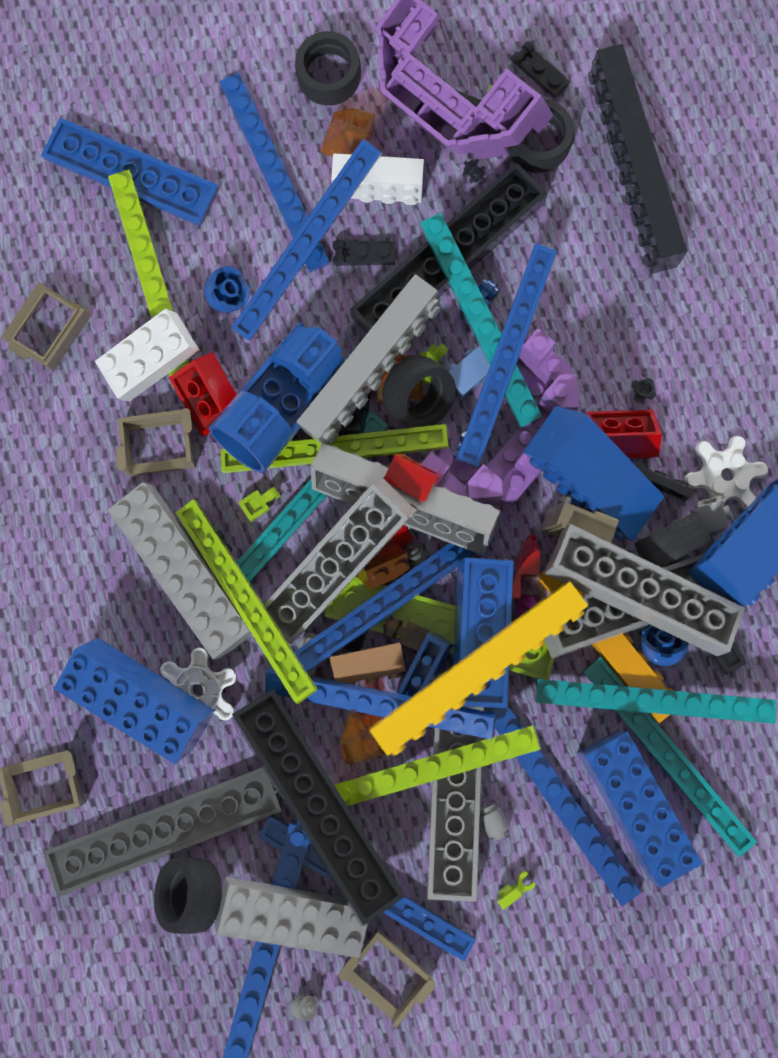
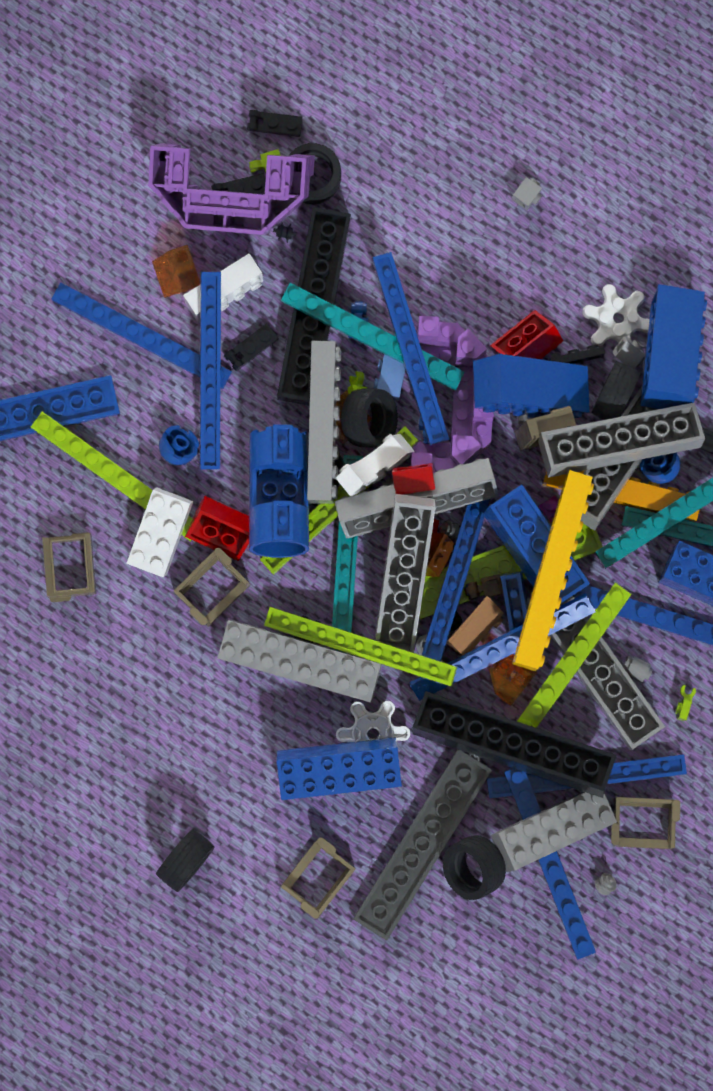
camera: 45 degrees left, 0 degrees up
(256, 504) = (314, 578): lime plate -> none
(321, 44) = (123, 210): black tyre -> none
(387, 438) = (373, 466): none -> white brick
(526, 564) = (530, 479): red slope -> none
(636, 159) = (393, 142): black brick -> none
(649, 387) = (523, 300): black plate -> none
(727, 297) = (527, 193): none -> light grey brick

